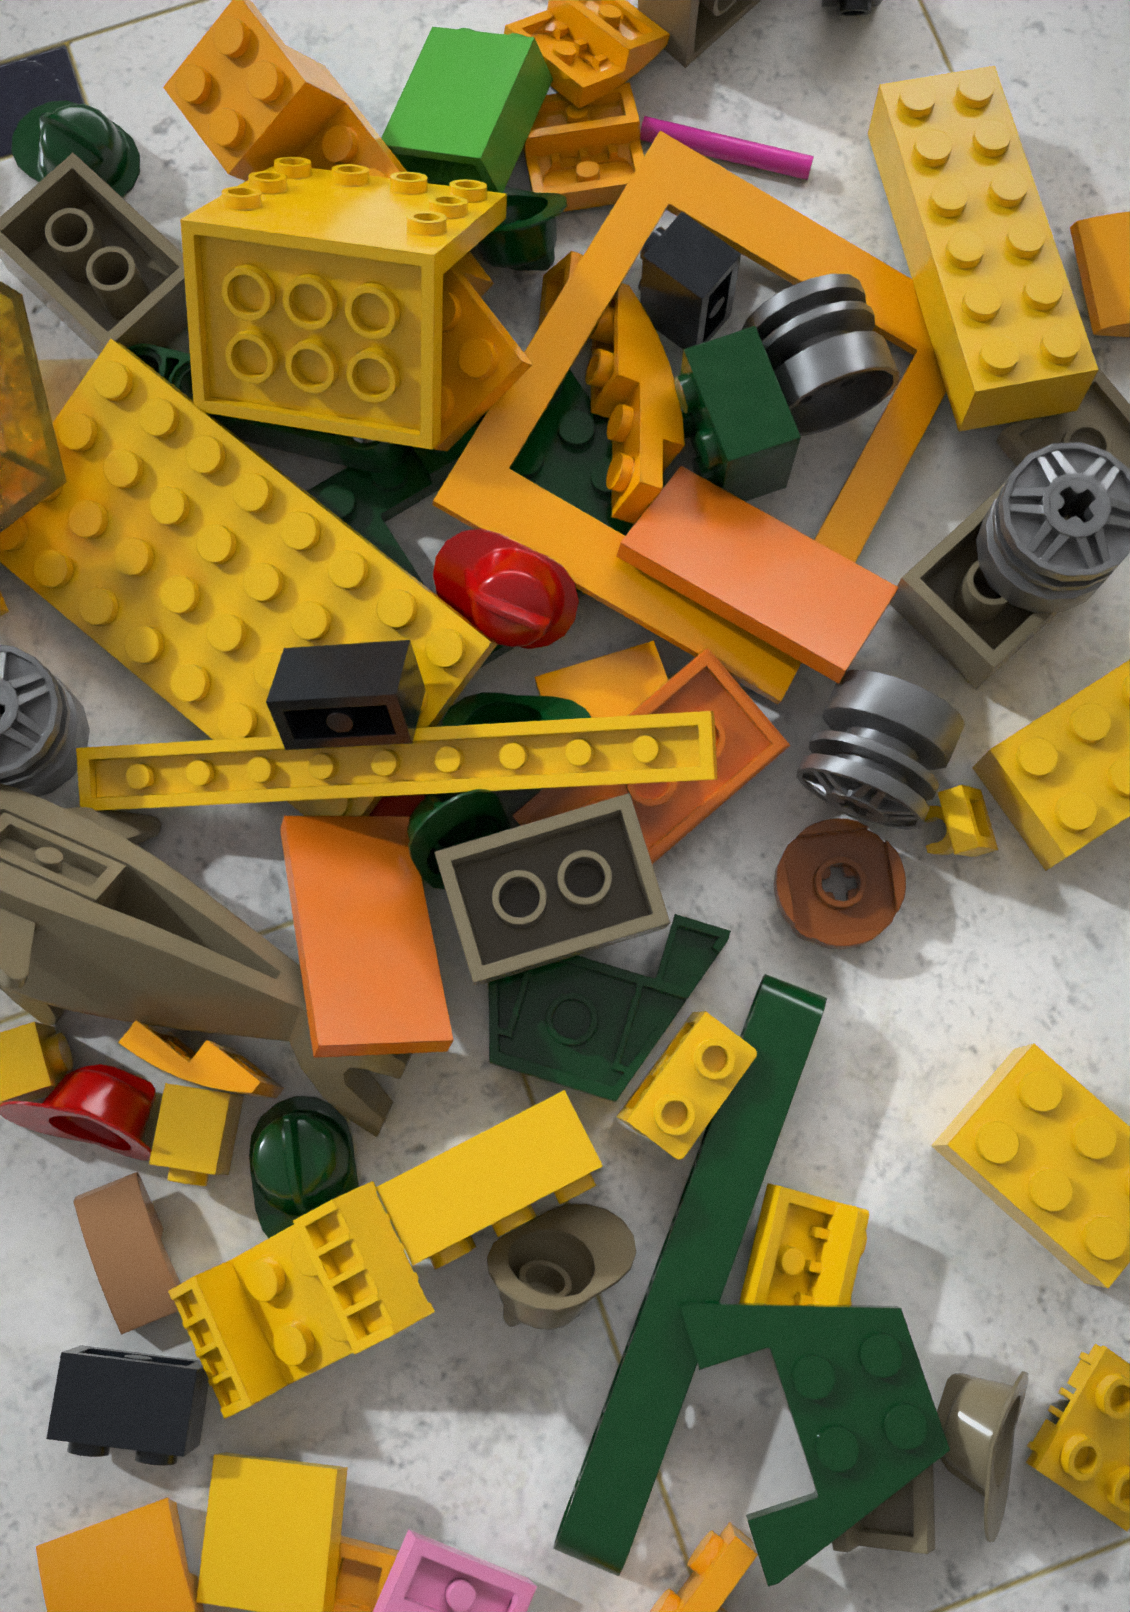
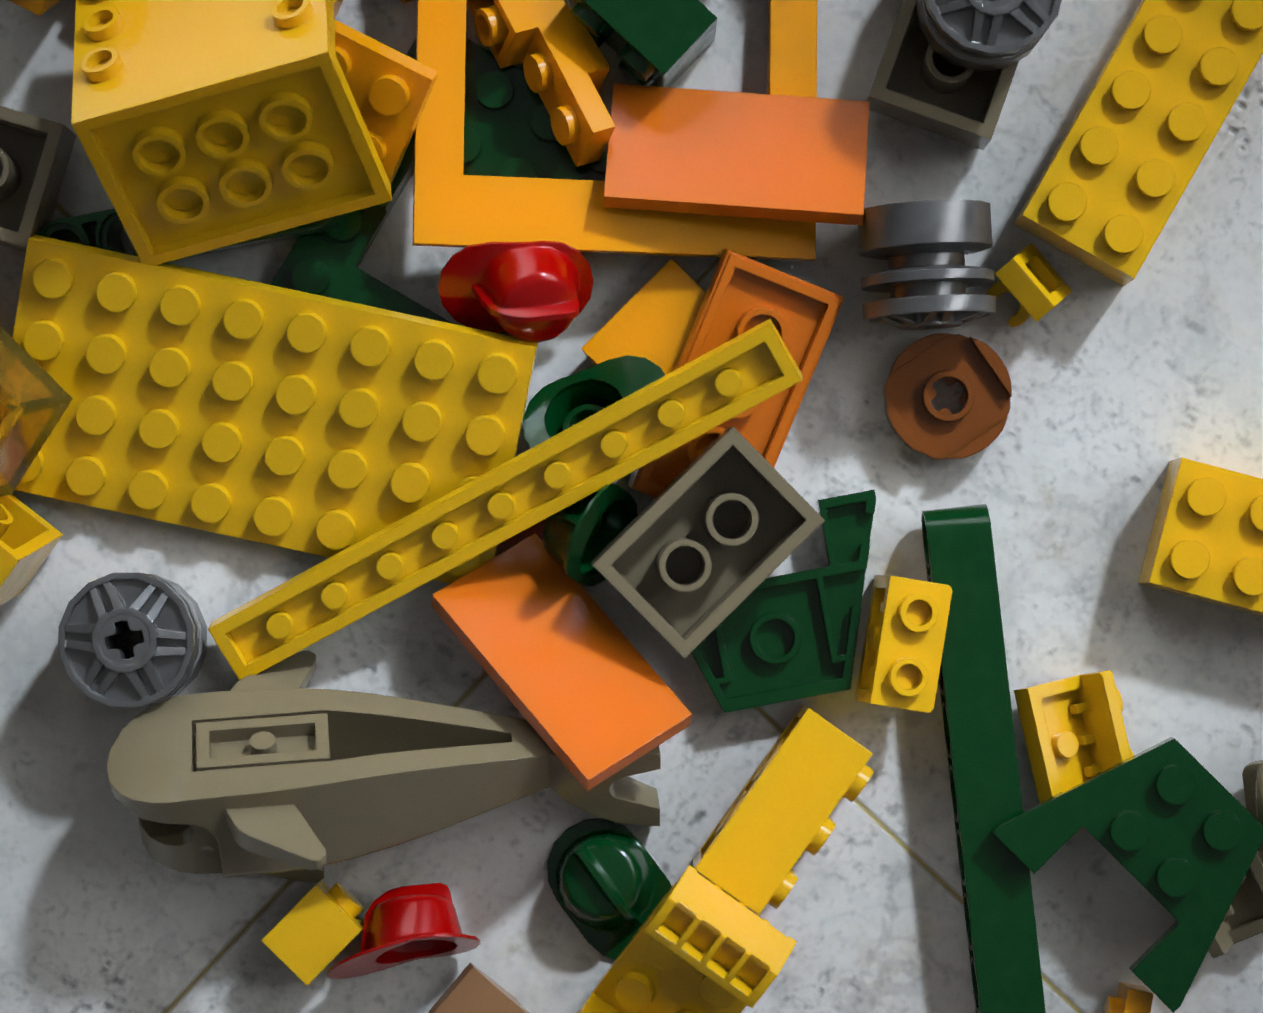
camera: 30 degrees left, 10 degrees up
(195, 1133) = (503, 904): yellow brick -> none
(211, 1066) = (501, 843): light orange slope -> none
(347, 695) = (439, 465): black brick -> none
(559, 1264) = (874, 849): dark tan piece -> none

